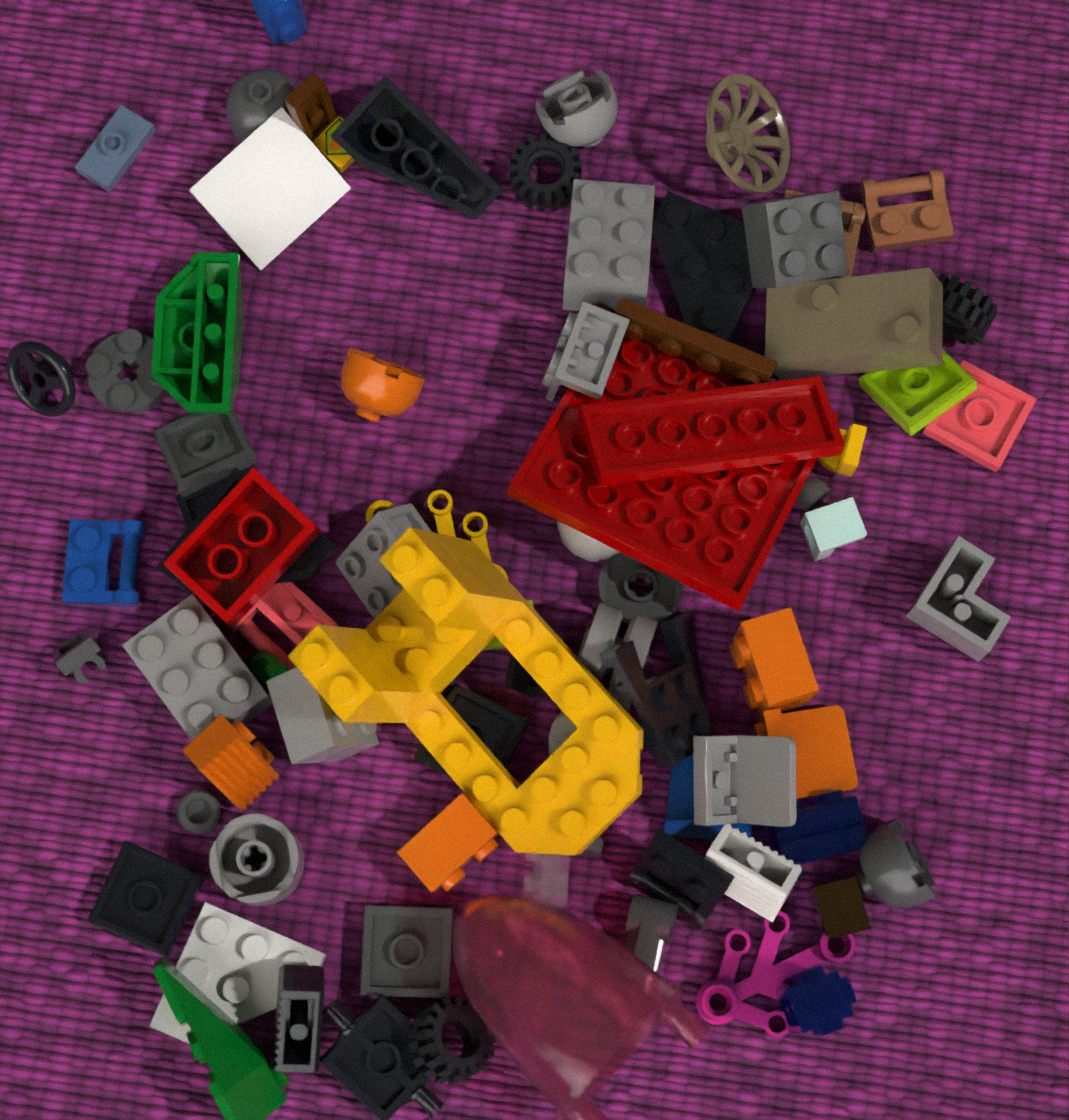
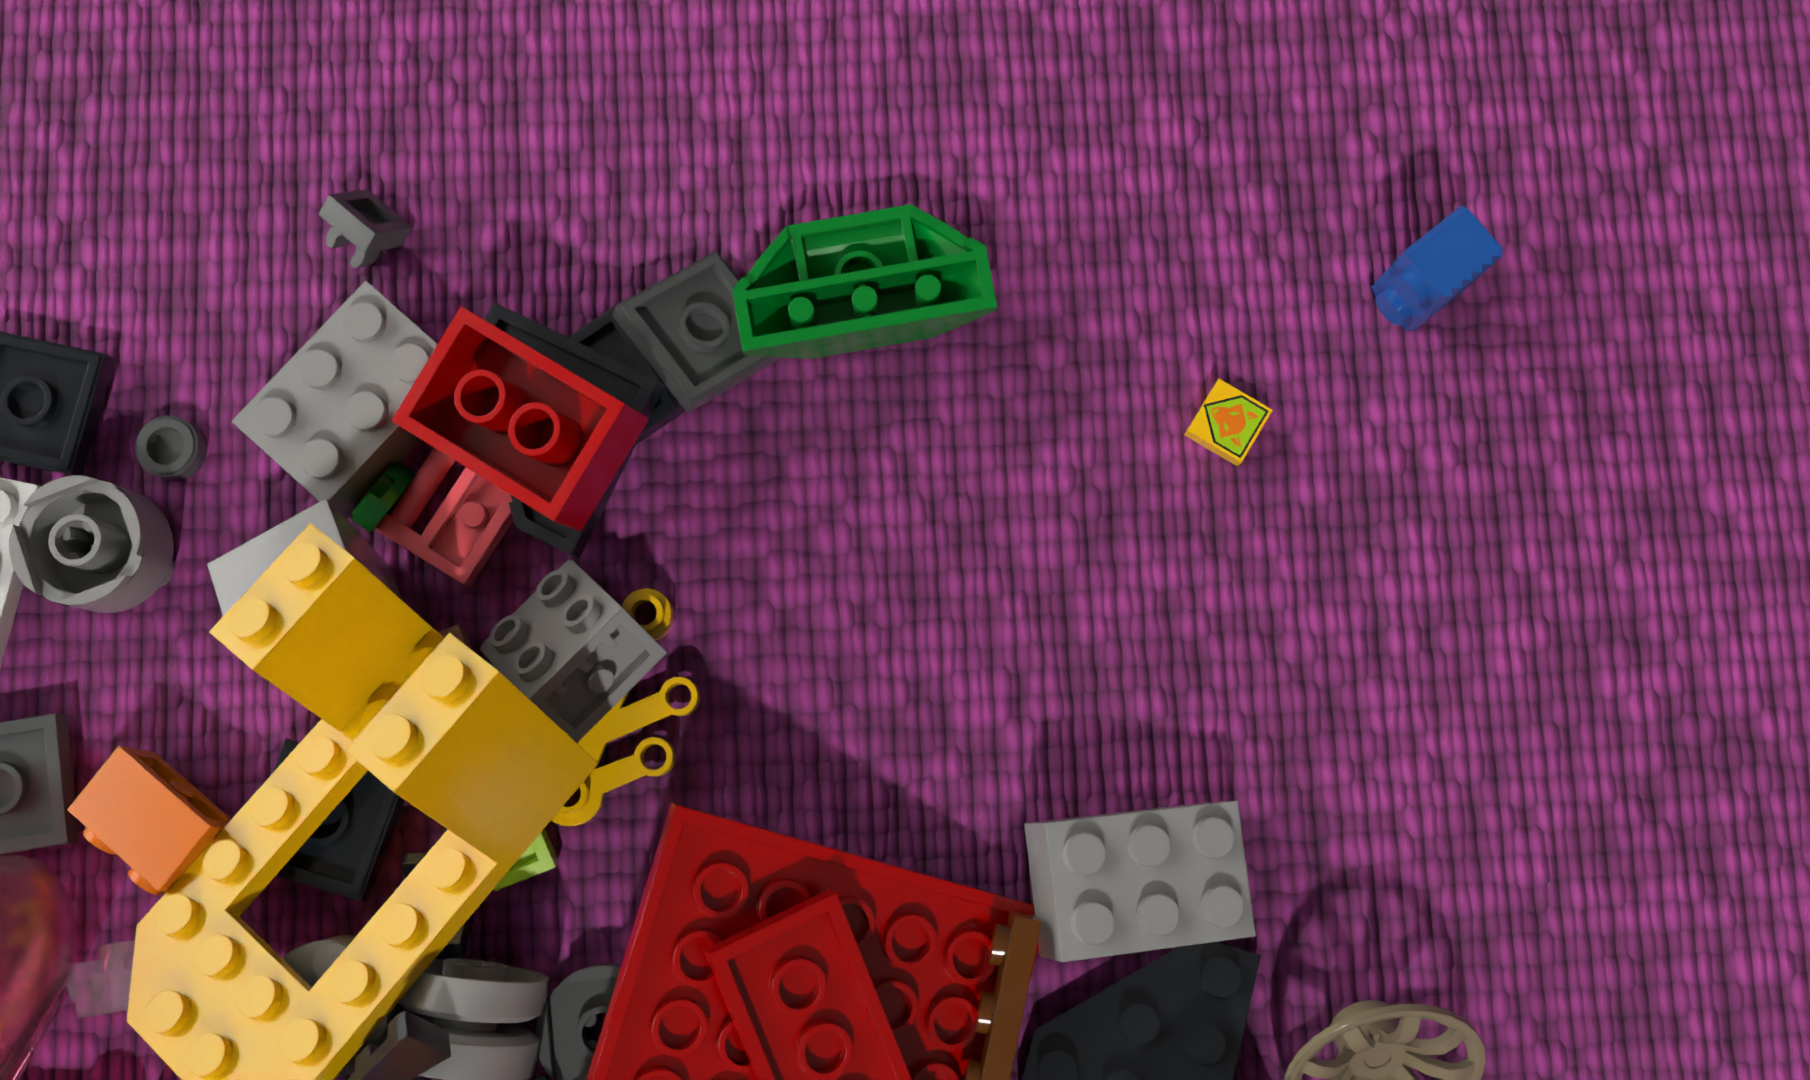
camera: 80 degrees right, 5 degrees up
(46, 373) = (767, 78): black piece -> none
(90, 563) = (504, 212): blue plate -> none
(105, 368) = (798, 162): dark grey plate -> none
(115, 148) = (1146, 94): sand blue plate -> none
(231, 761) = (221, 474): orange brick -> none
(256, 99) = (1257, 298): dark grey cylinder -> none
(270, 188) = (1127, 332): white piece -> none
(311, 106) = (1263, 363): reddish brown plate -> none
(379, 385) = (843, 564): orange cylinder -> none
(407, 146) = (1243, 528): black wedge -> none
(544, 194) = (1290, 744): black tyre -> none
(579, 109) = (1366, 783): light grey cylinder -> none
(589, 351) = (942, 879): light grey bracket -> none

